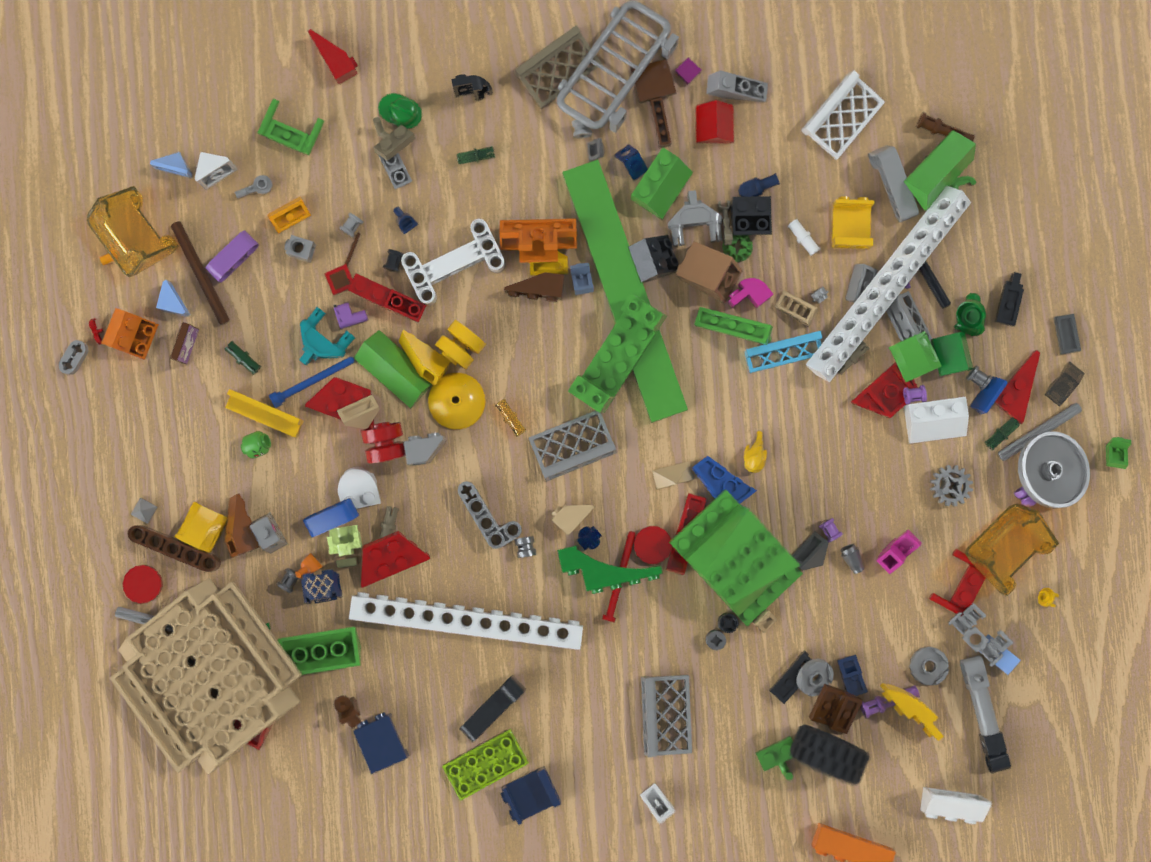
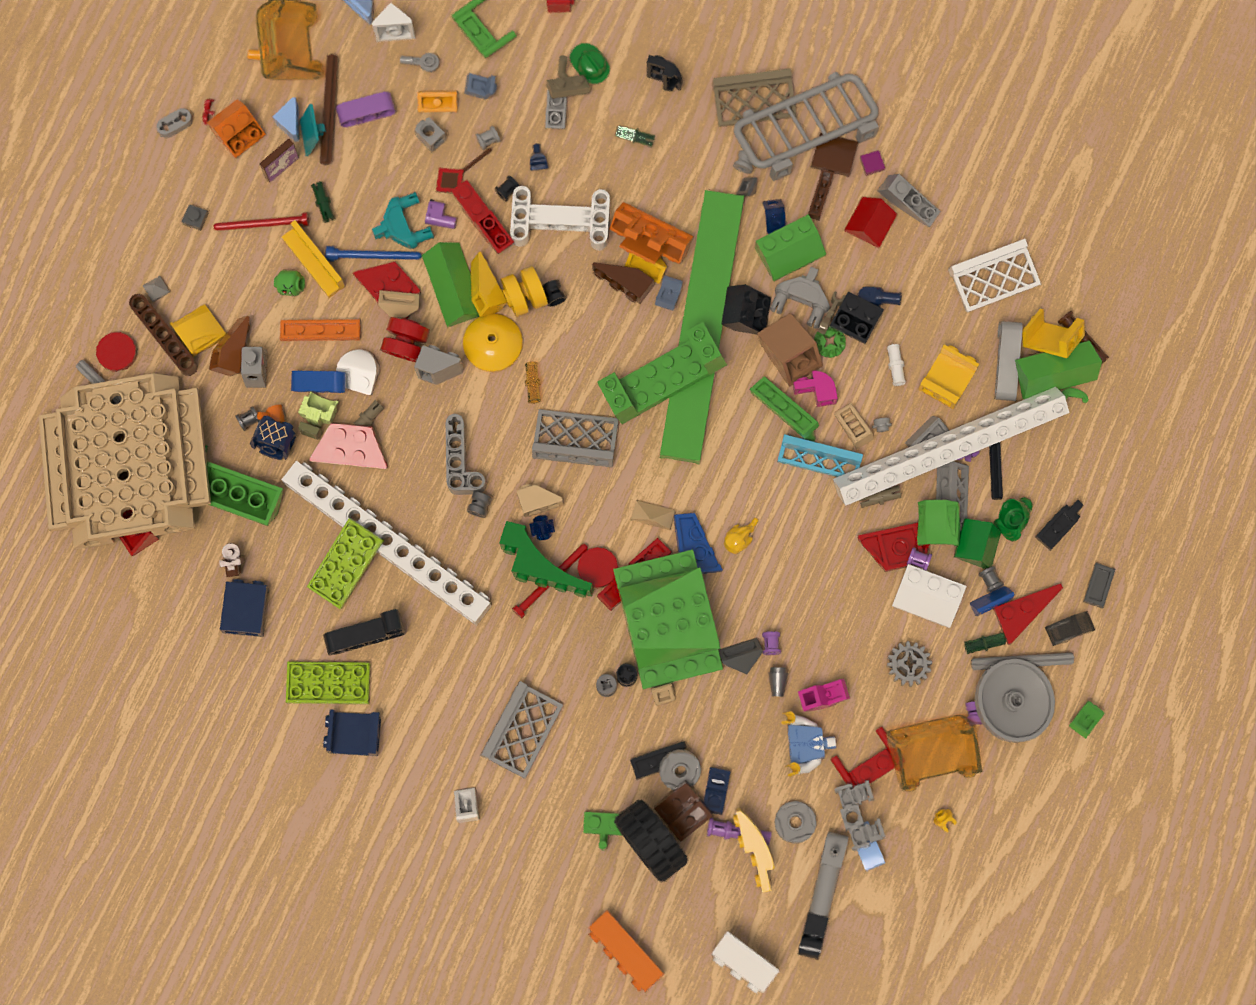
camera: 35 degrees right, 10 degrees down
(140, 430) = (194, 217): none -> dark grey plate
(195, 301) = (310, 130): none -> teal piece
(235, 382) = (304, 219): none -> red bar
(305, 470) = (320, 330): none -> orange tile
(318, 182) = (480, 86): none -> sand blue bracket
(443, 659) = (345, 563): none -> lime tile
(485, 331) = (554, 293): none -> black wheel
(905, 600) = (805, 744): none -> torso
(923, 144) = (1052, 338): none -> yellow panel

